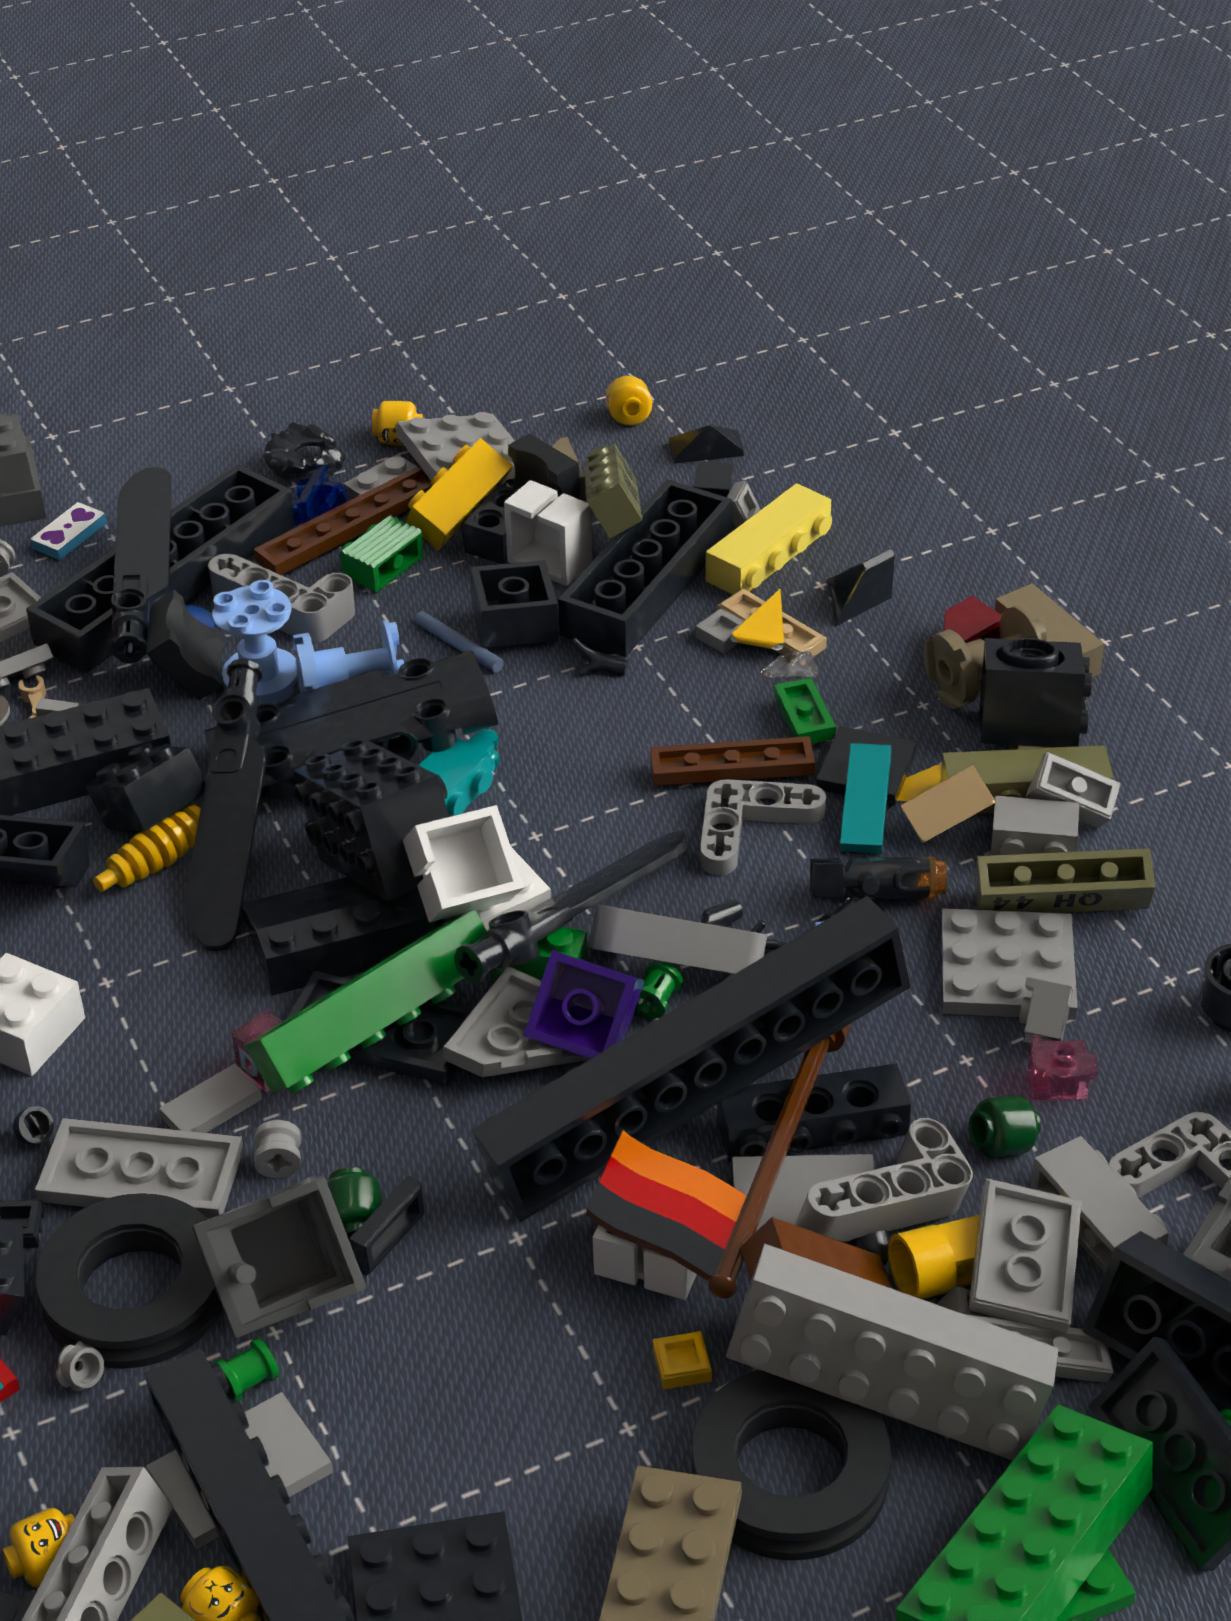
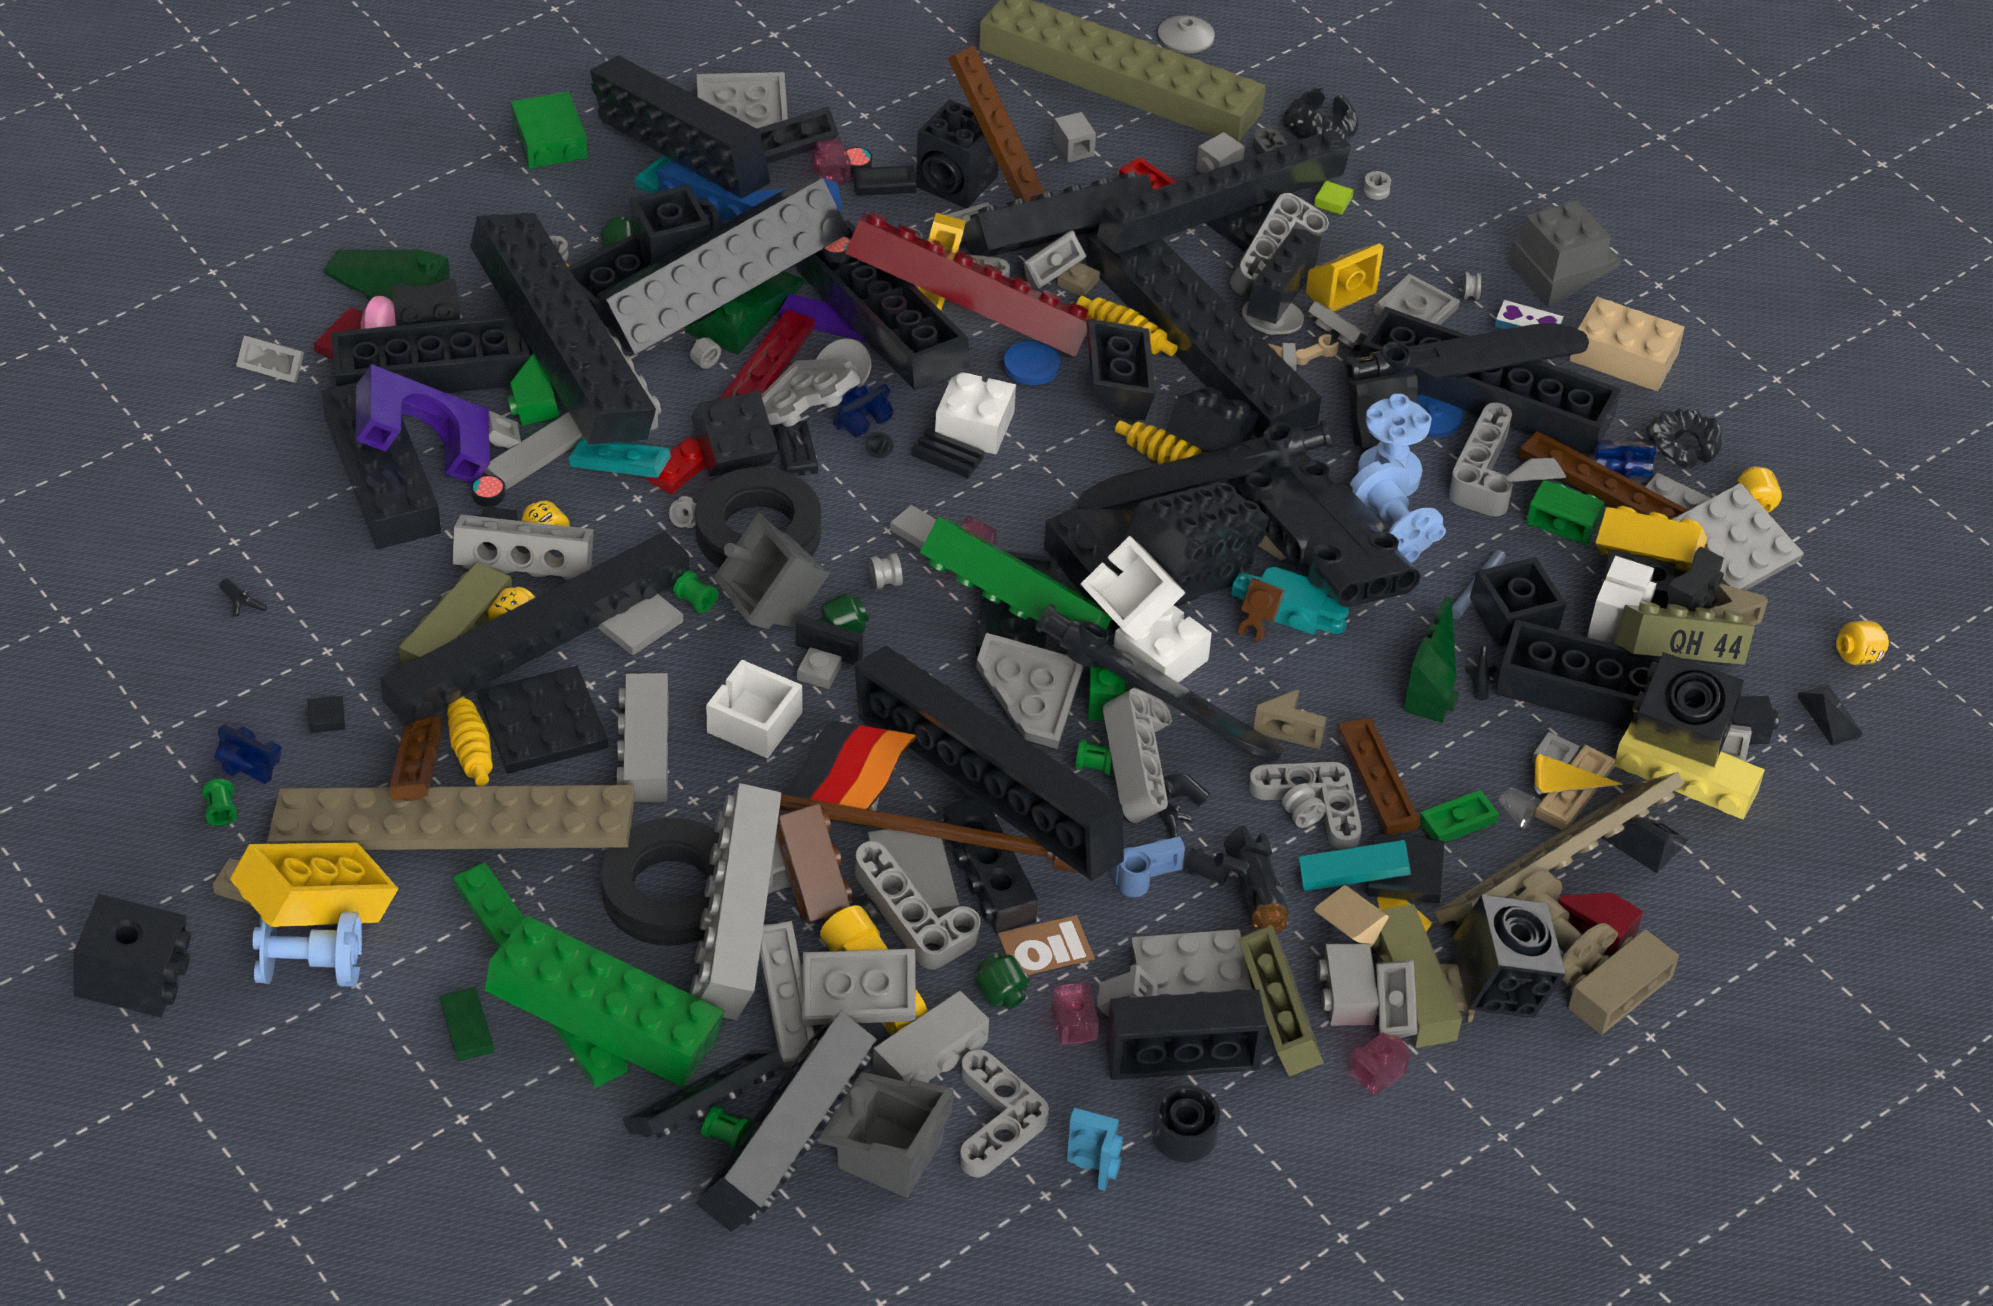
camera: 75 degrees right, 5 degrees up
(66, 1057) = (949, 450): none -> black tile
(112, 1160) = (854, 507): light grey plate -> none
(151, 442) = (1629, 343): none -> tan brick
(328, 554) = (1537, 470): none -> light grey slope
(424, 1250) = (819, 668): none -> light grey plate
(462, 791) = (1262, 603): none -> reddish brown plate
(506, 1316) = (754, 708): none -> white piece
(516, 1460) = (645, 736): none -> light grey brick
(579, 684) = (1434, 670): none -> dark green wedge
(582, 1006) = (1047, 702): dark purple slope -> none
(637, 815) = (1283, 721): none -> dark tan slope
(745, 488) = (1687, 708): none -> black brick
(768, 823) = (1303, 805): none -> light grey wheel
(878, 641) = (1558, 849): none -> dark tan plate
(937, 1085) = (1048, 945): none -> sticker
(1113, 965) = (1185, 1034): none -> black brick
(1141, 820) = (1379, 1063): none -> clear pink brick

